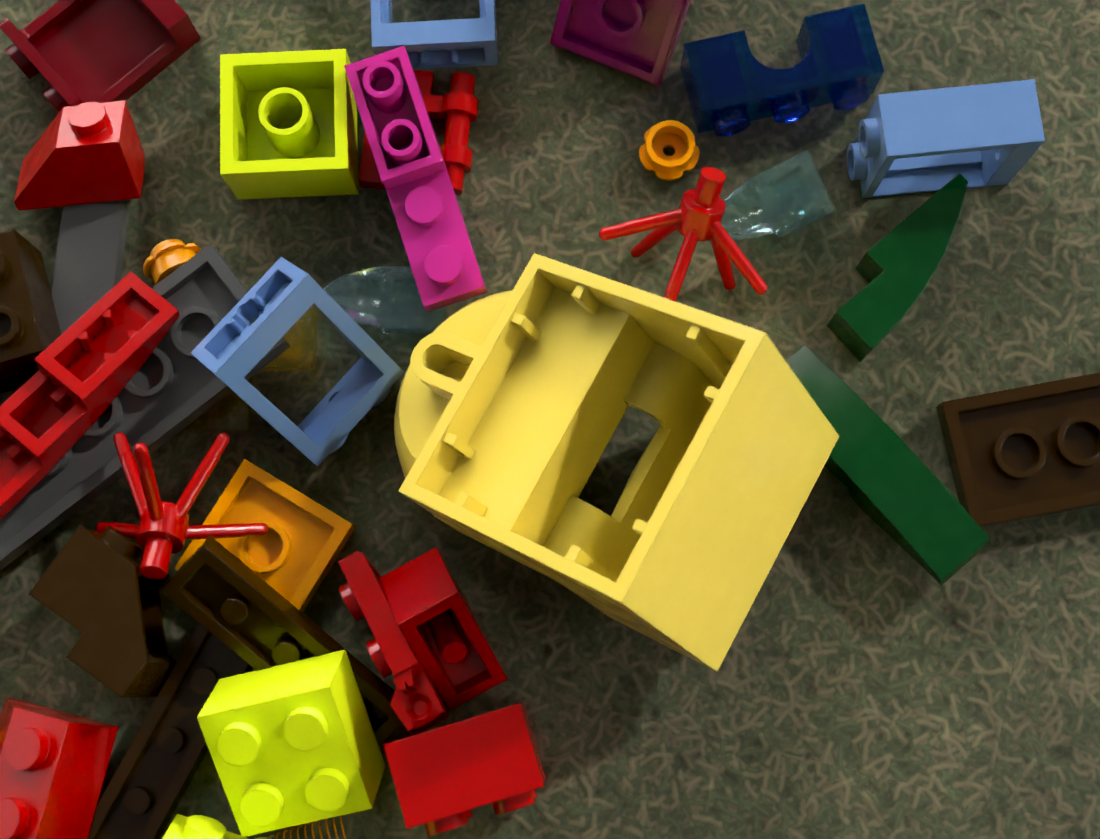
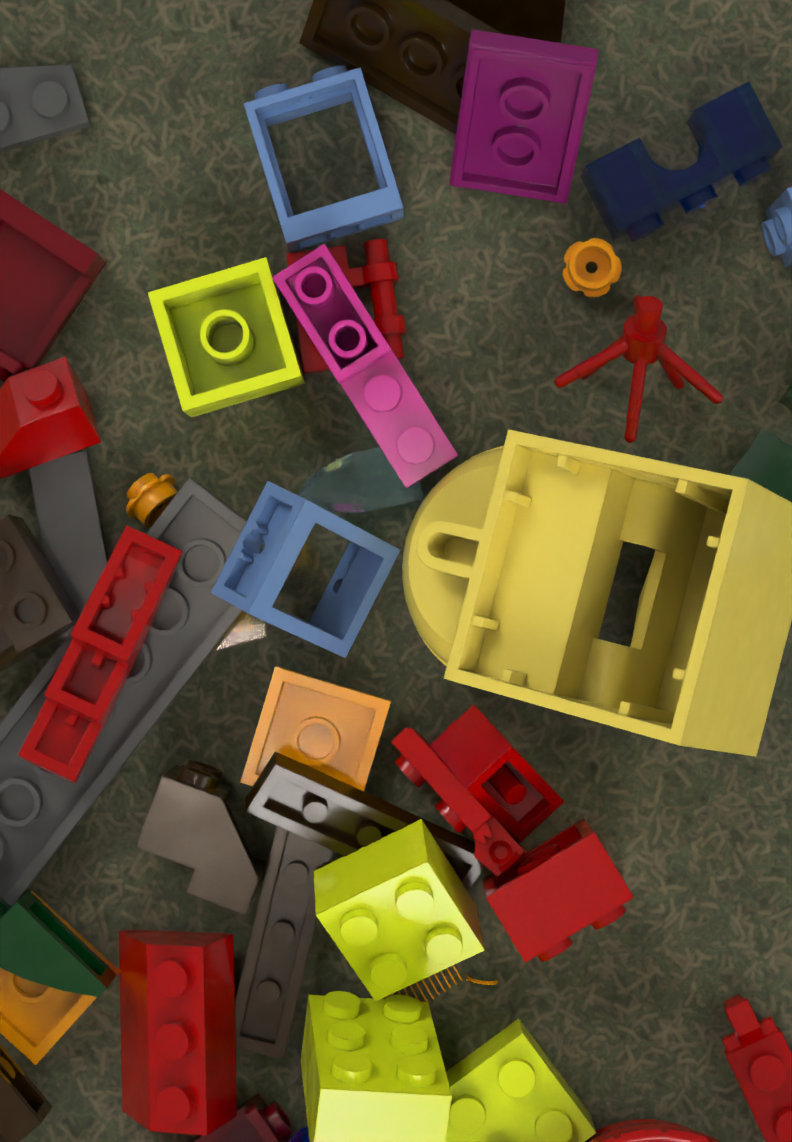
camera: 20 degrees left, 10 degrees up
(165, 524) = (228, 750): red plant -> none
(778, 200) = (708, 293): clear light blue plate -> none

